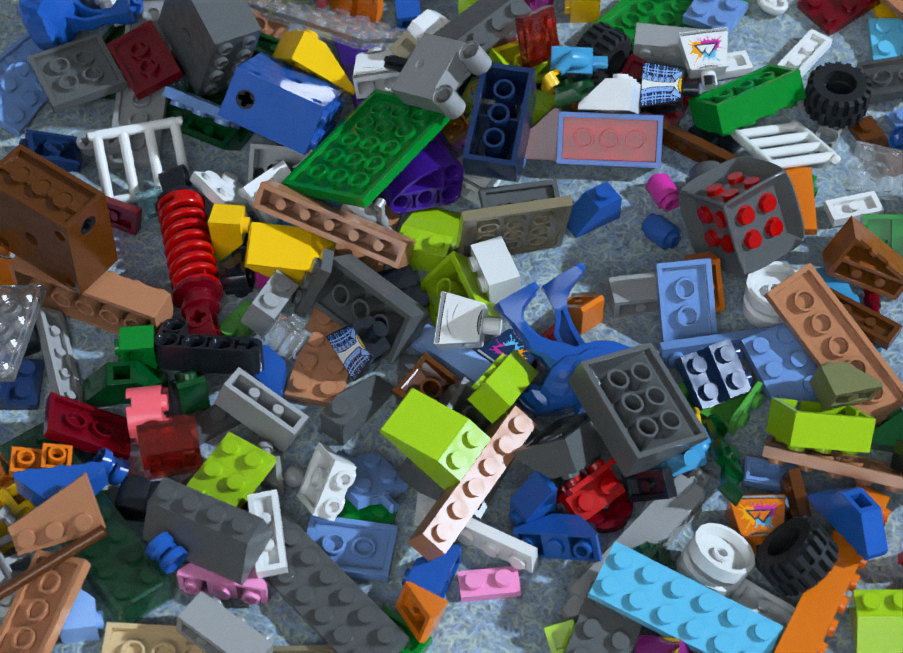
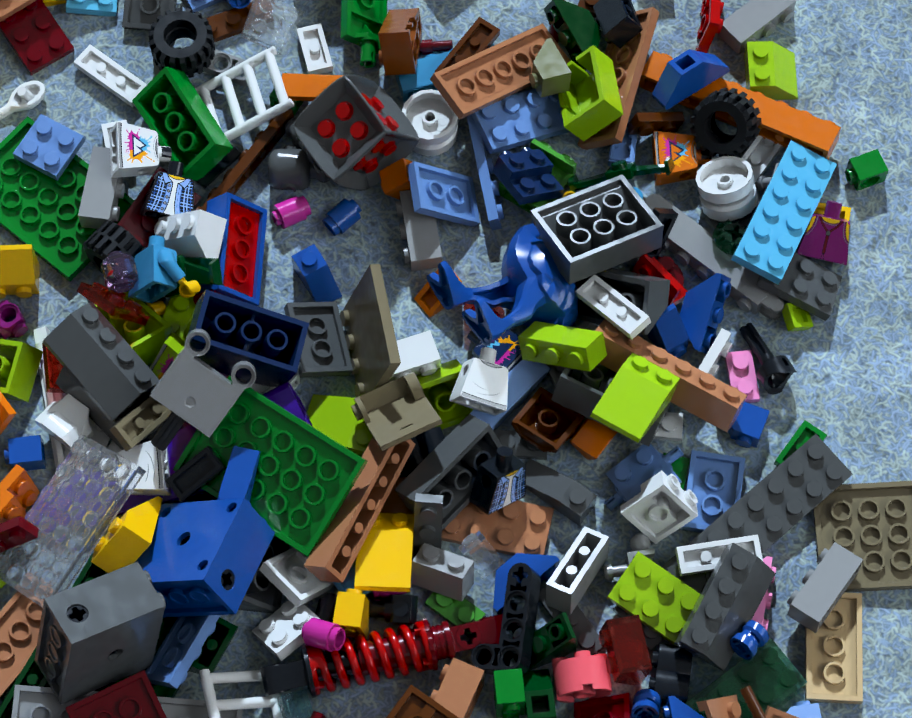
camera: 90 degrees left, 15 degrees up
(203, 196) = (323, 634): none -> dark pink brick
(356, 123) = (240, 474): none -> blue slope
(366, 100) = (195, 474): none -> black tile
(420, 610) = (786, 424): orange slope -> none
(428, 244) = (396, 411): none -> dark tan door
(495, 606) = (773, 370): none -> black piece
(544, 422) = (613, 306): none -> white plate
(568, 33) = (119, 271): none -> clear purple head

